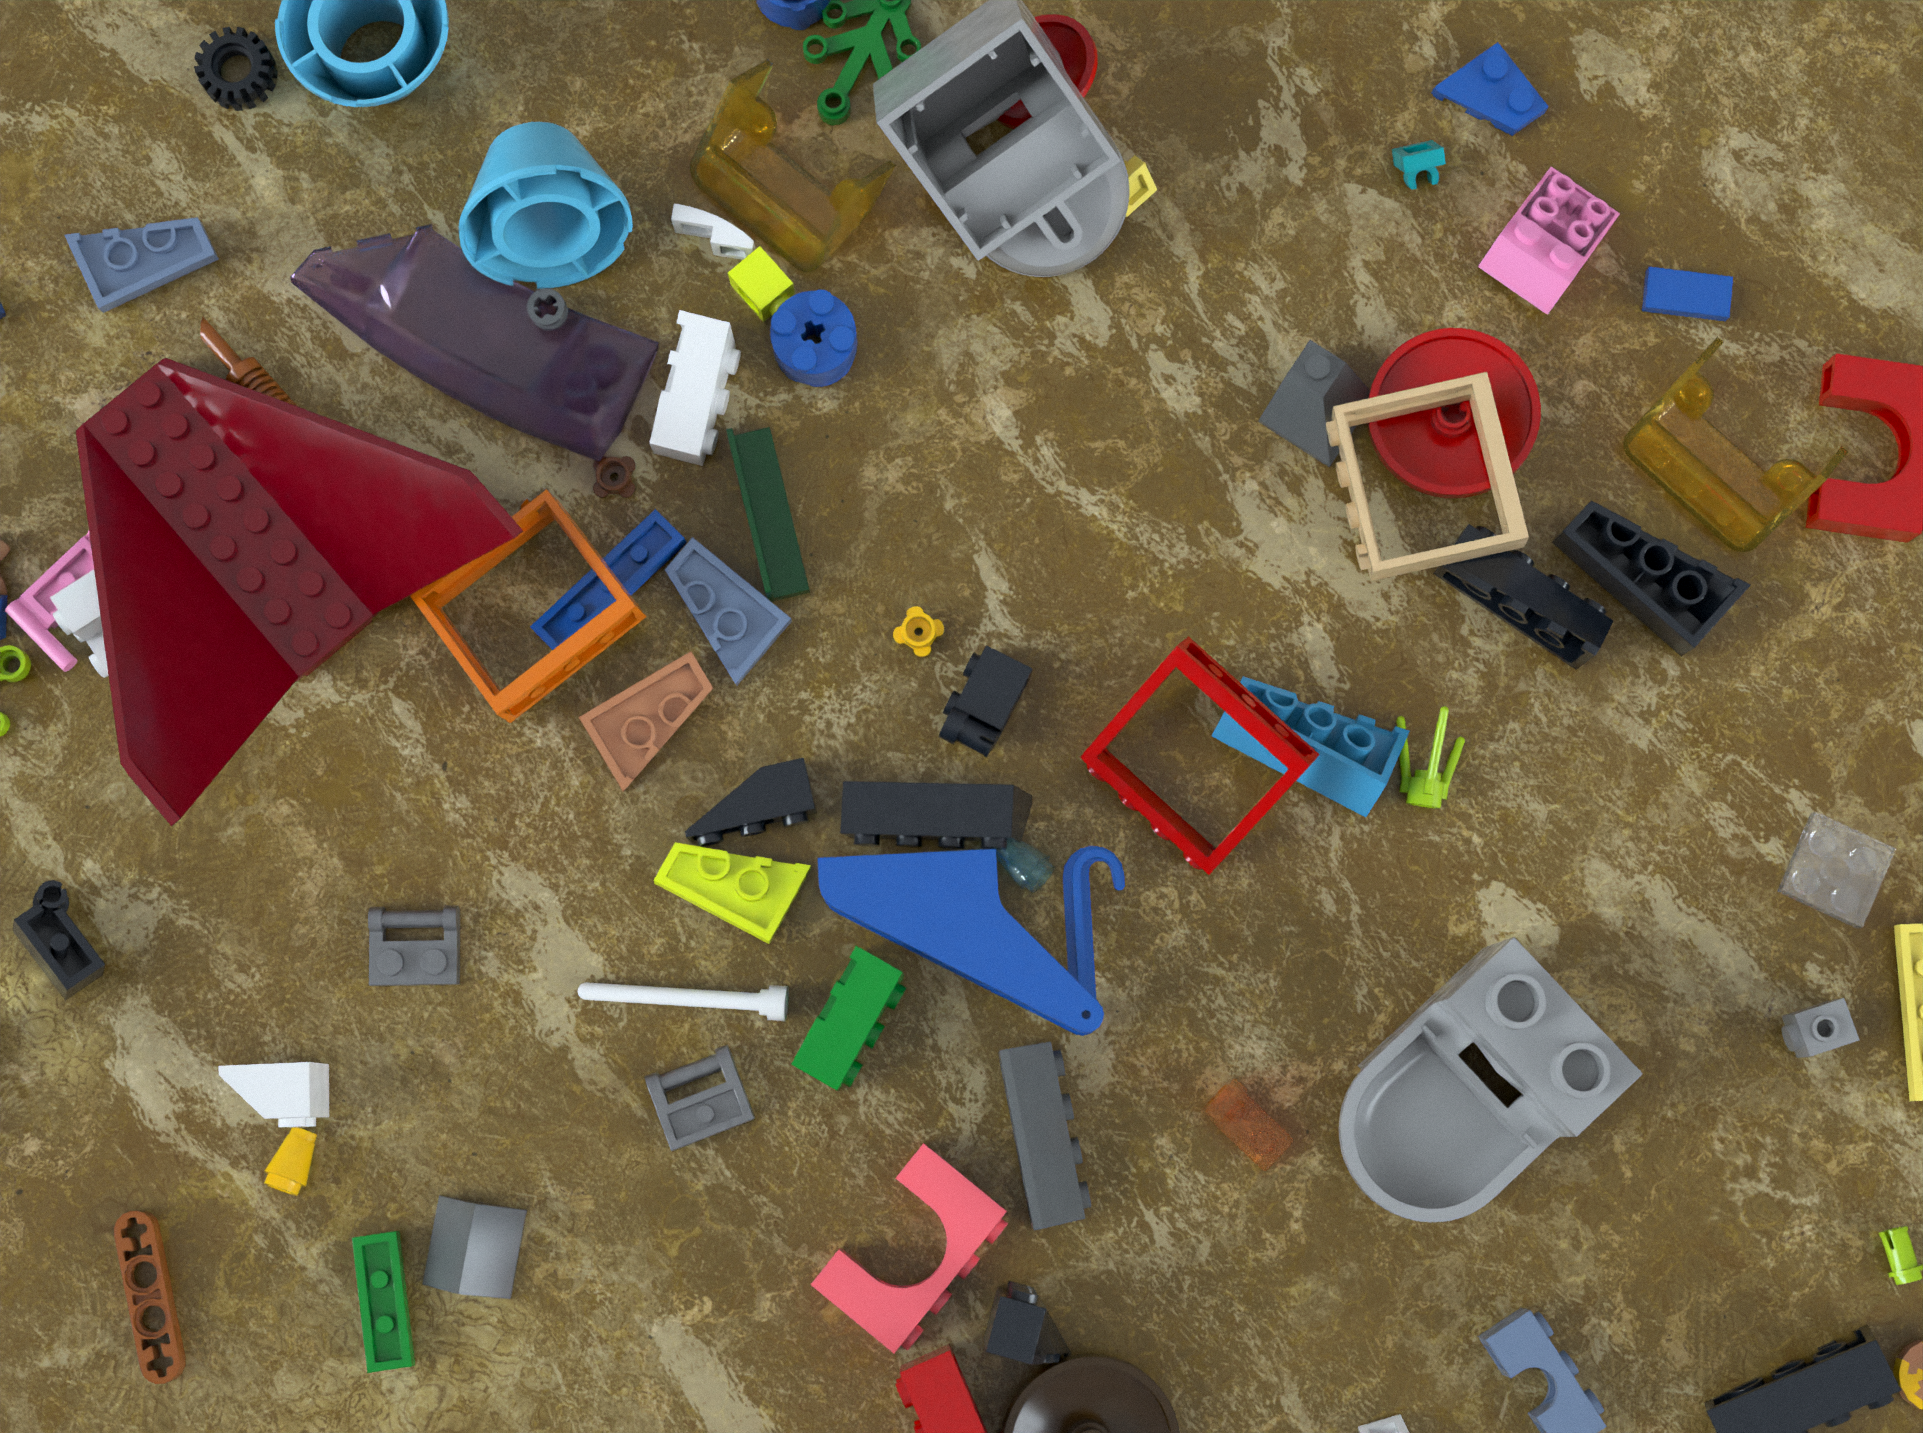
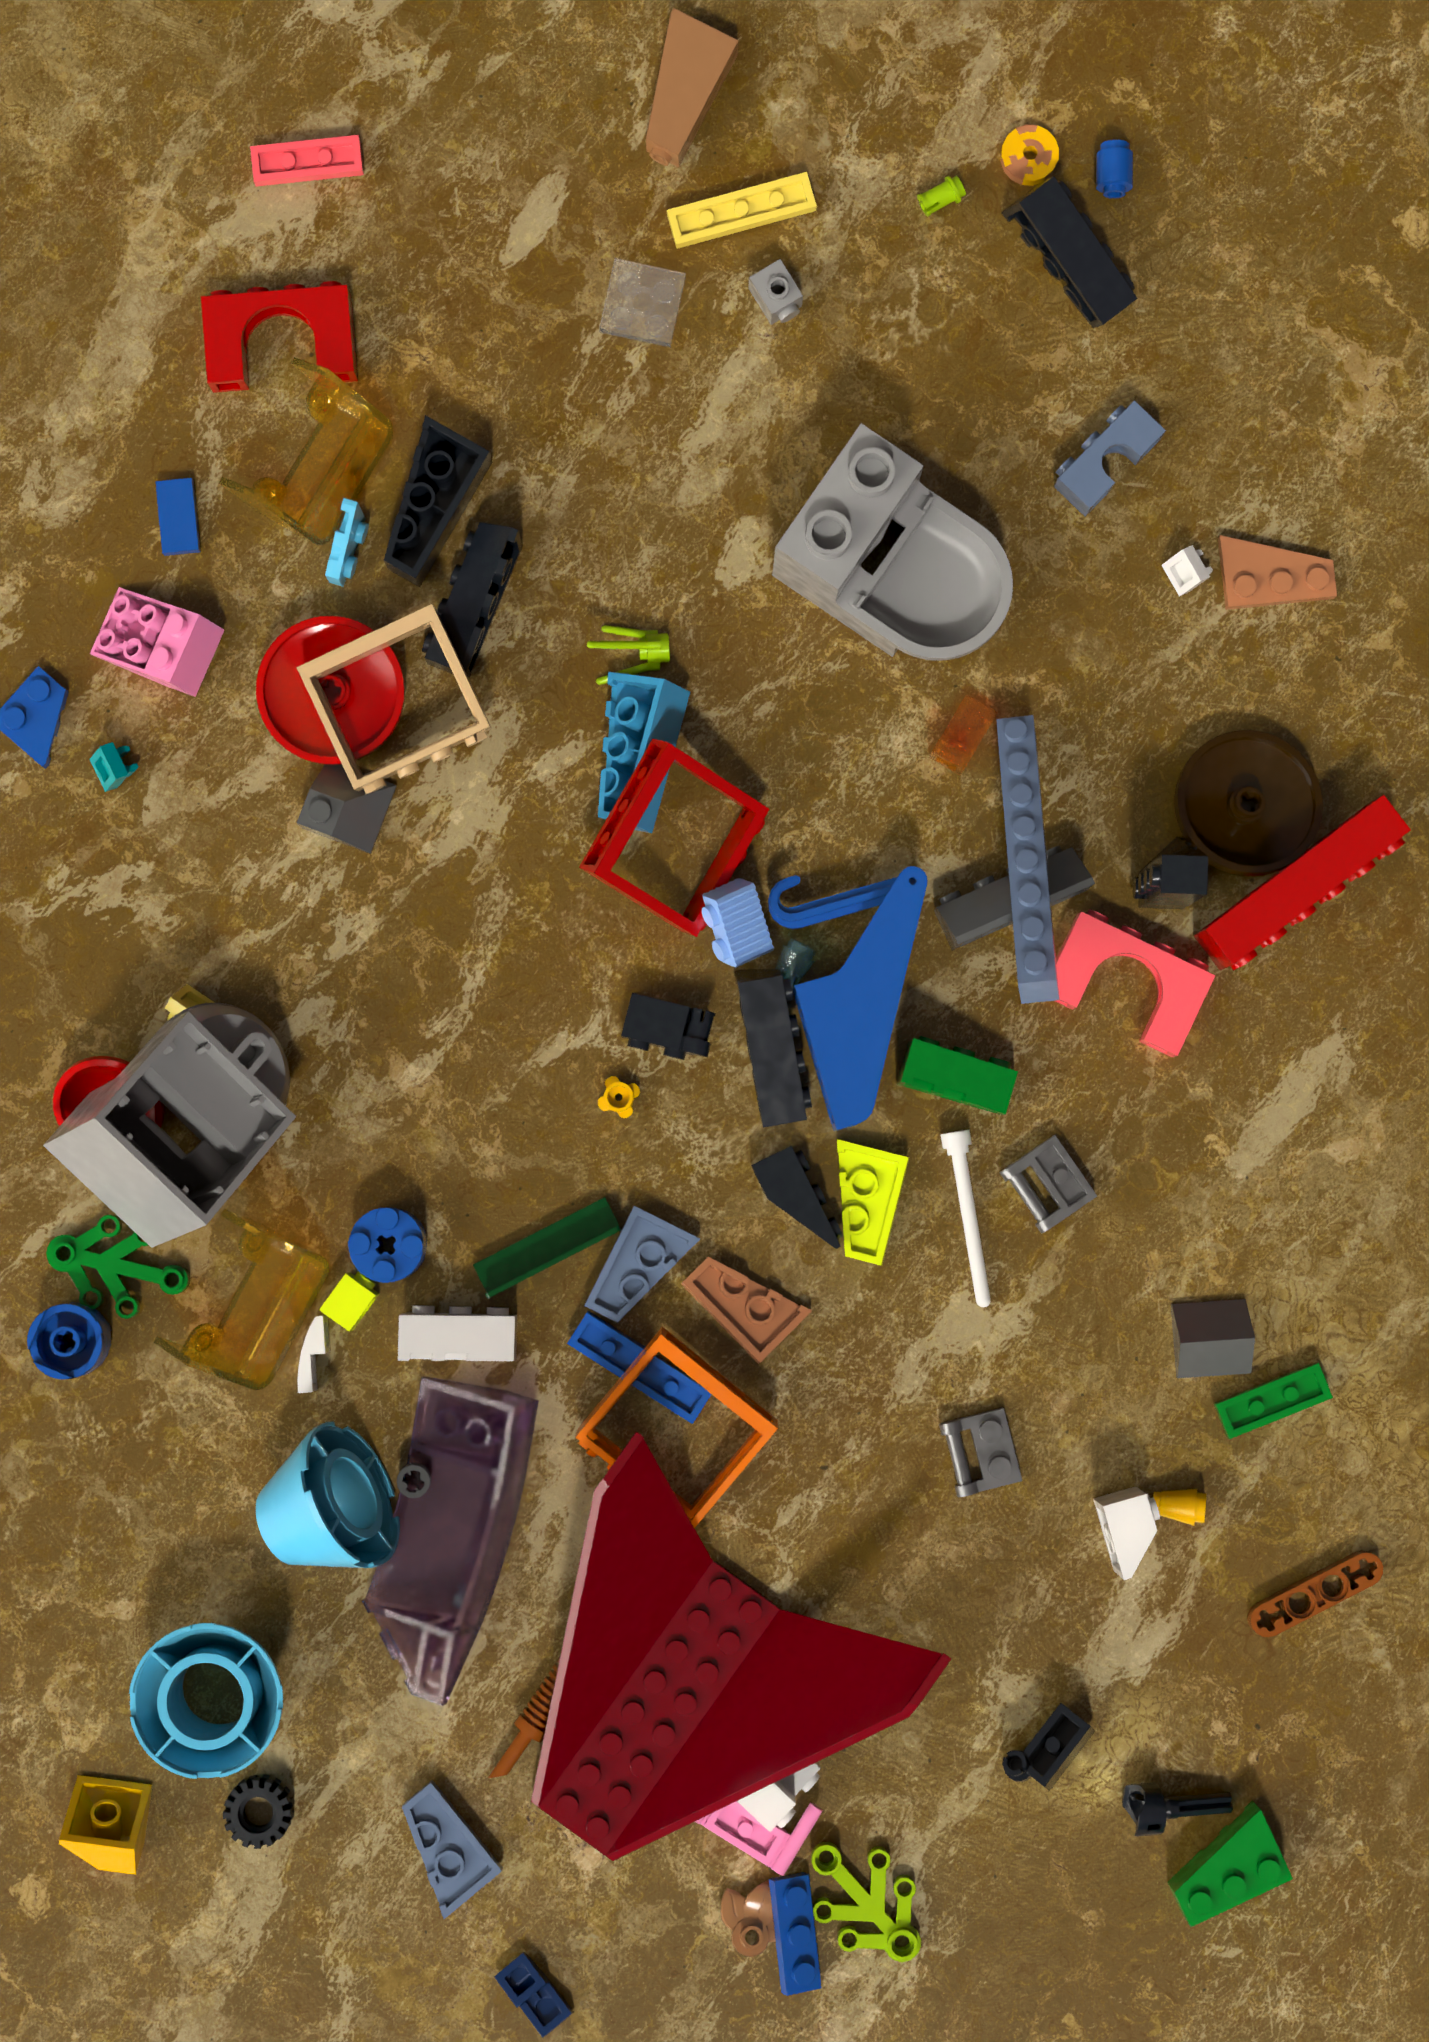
camera: 105 degrees left, 5 degrees up
(609, 466) = (552, 1378): reddish brown plate -> none
(1079, 1155) = (1027, 860): none -> sand blue brick
(1085, 805) = (736, 922): none -> light blue brick
(1618, 466) = (352, 531): none -> medium azure wing

